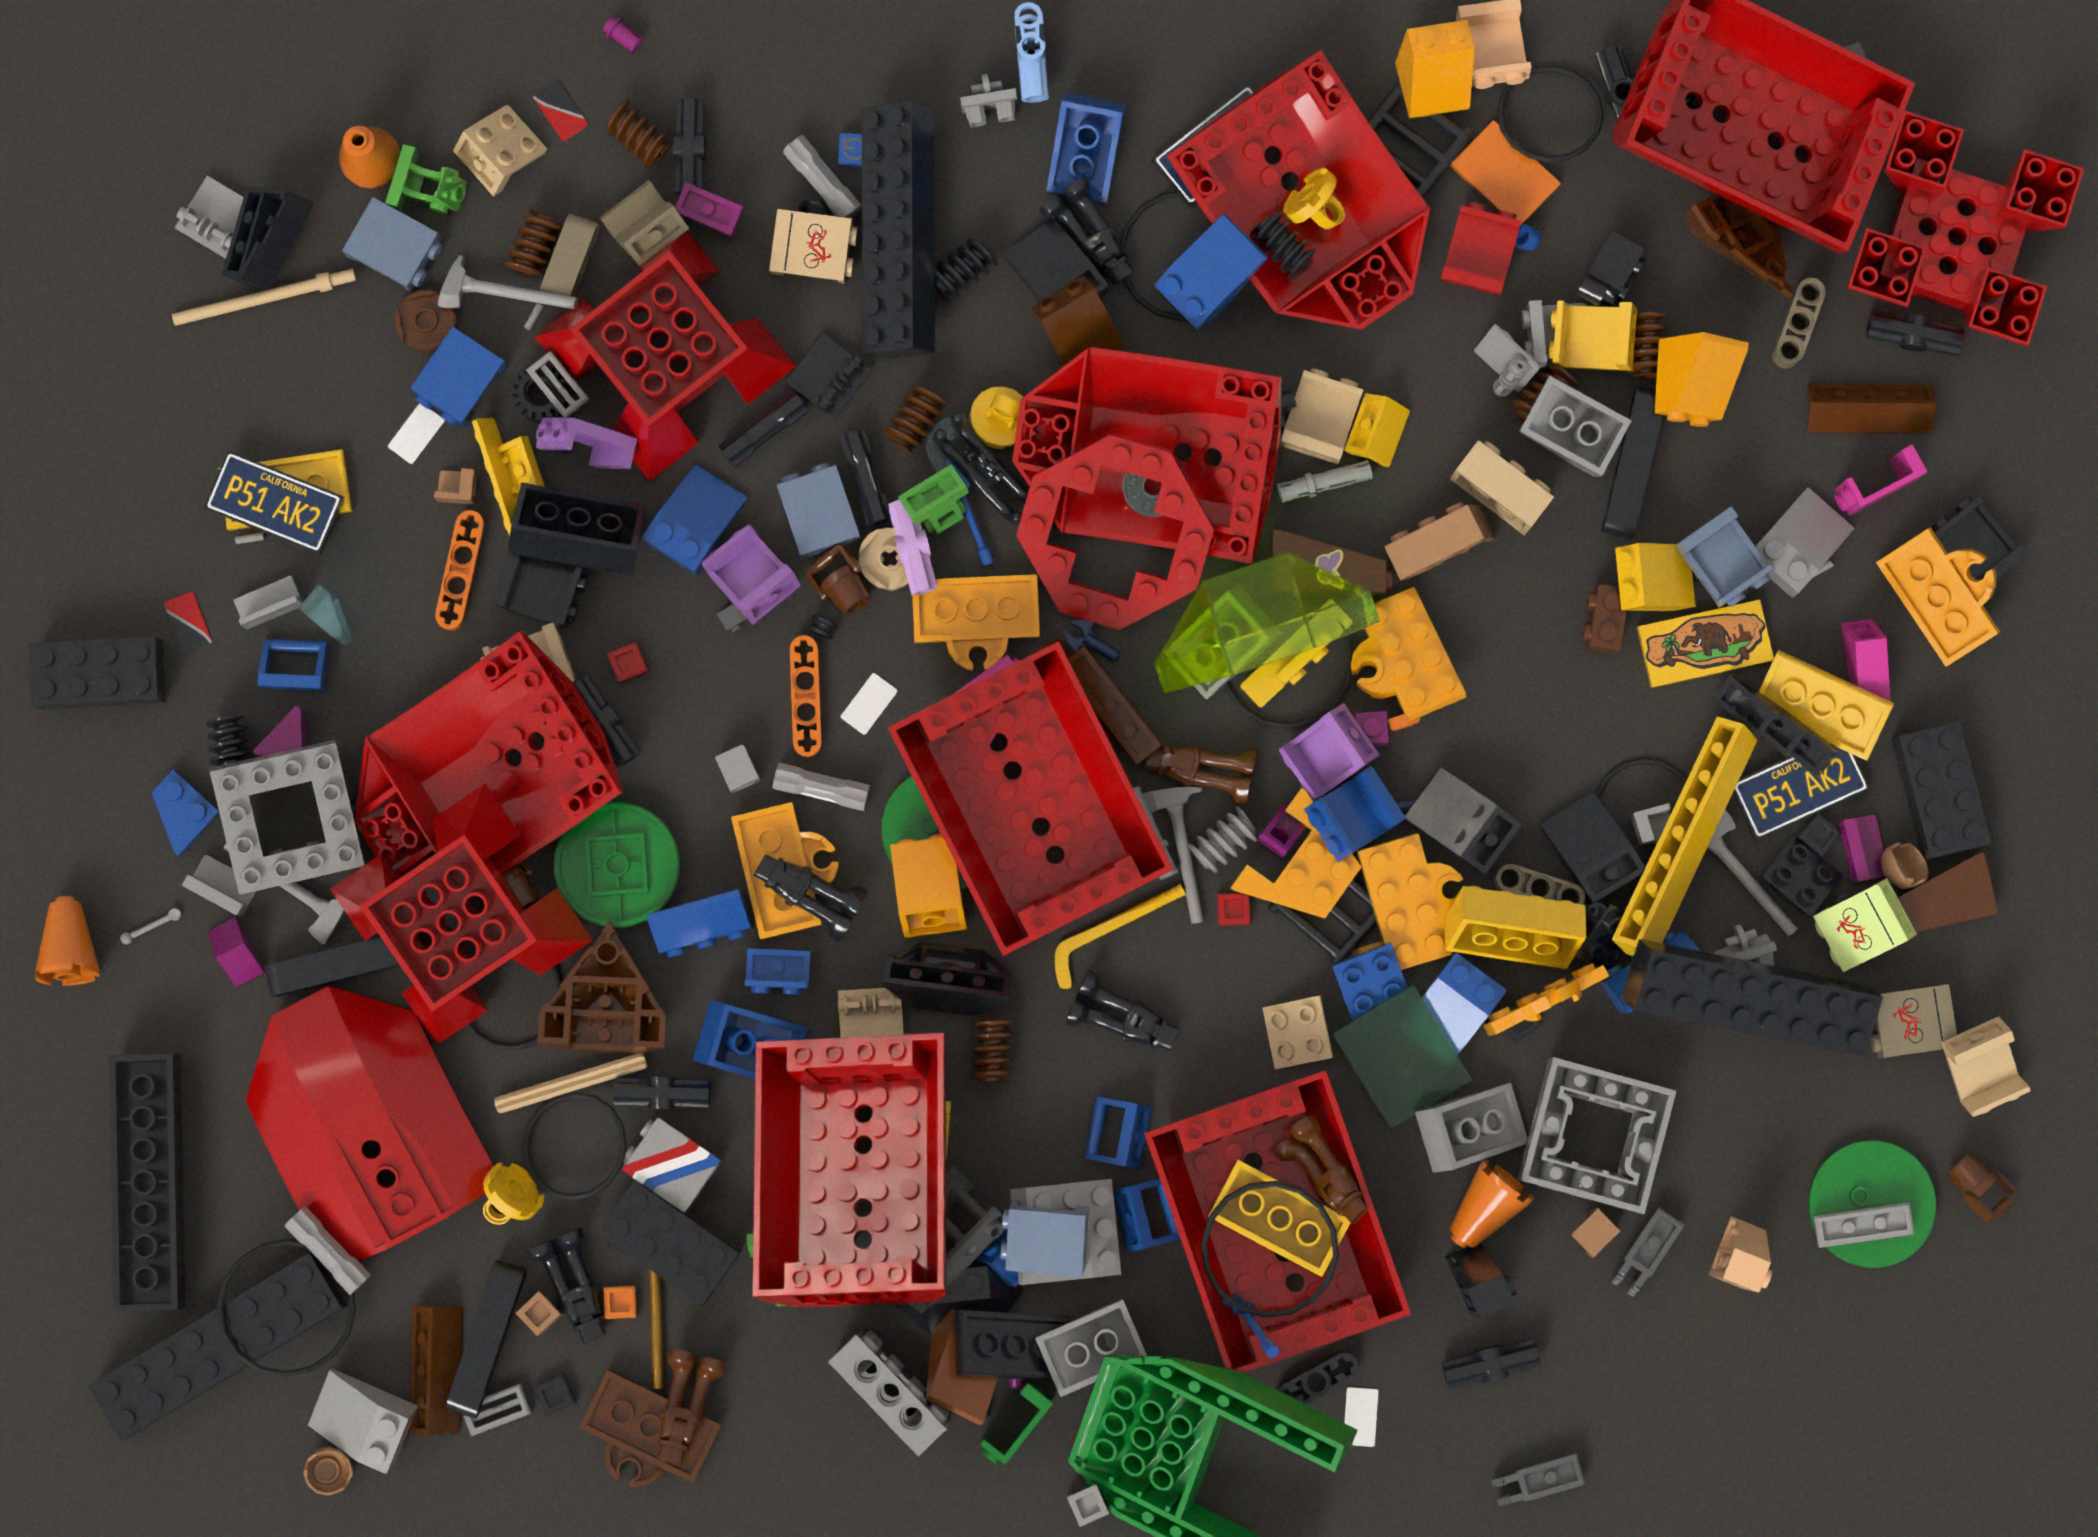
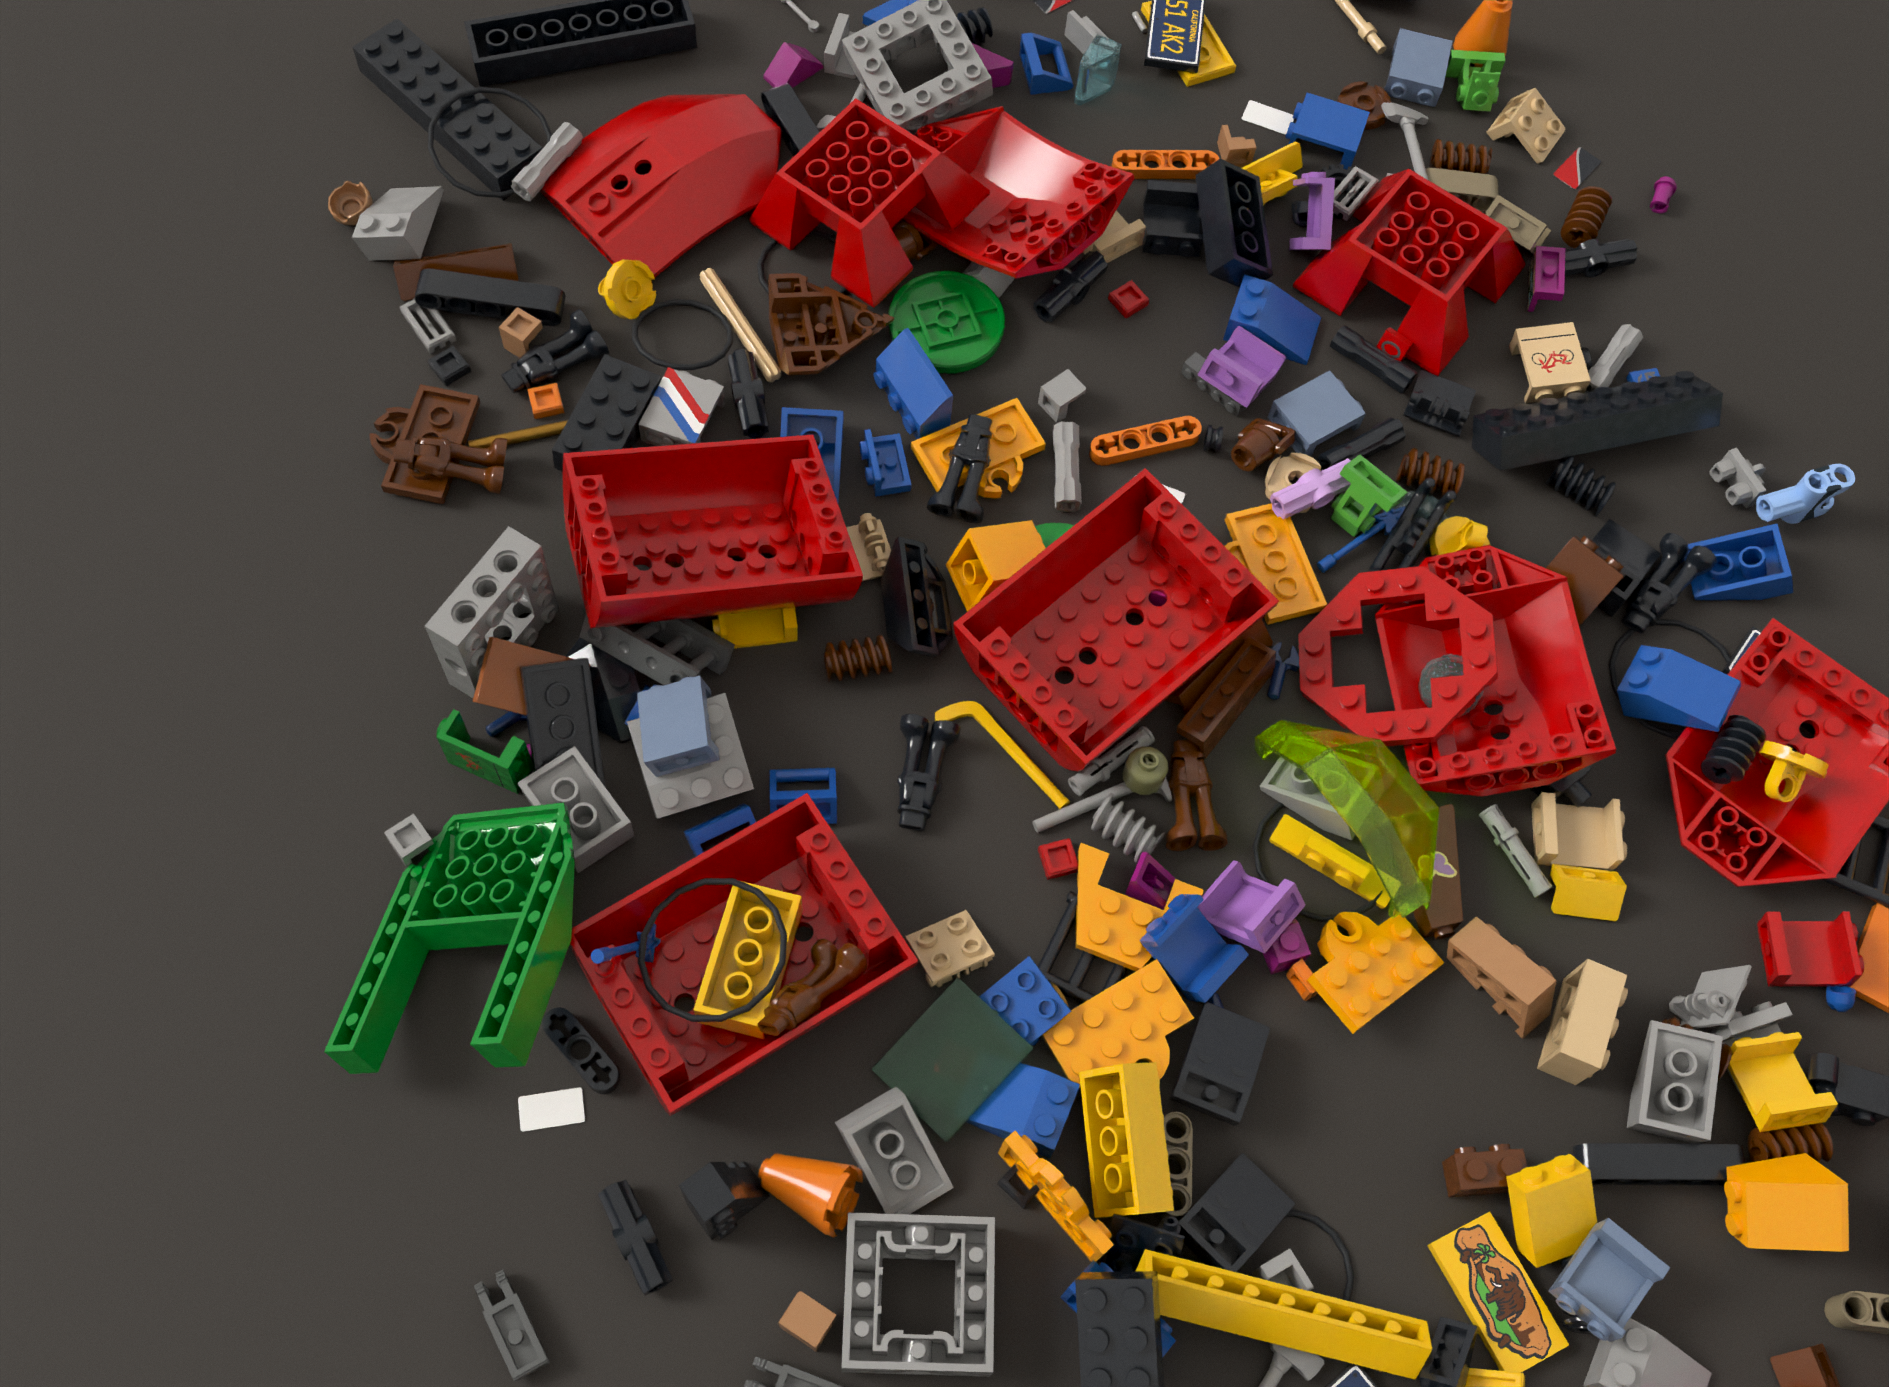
camera: 70 degrees right, 20 degrees down
(755, 403) = (1394, 344): none -> red tile
(1181, 818) = (1145, 770): none -> olive head

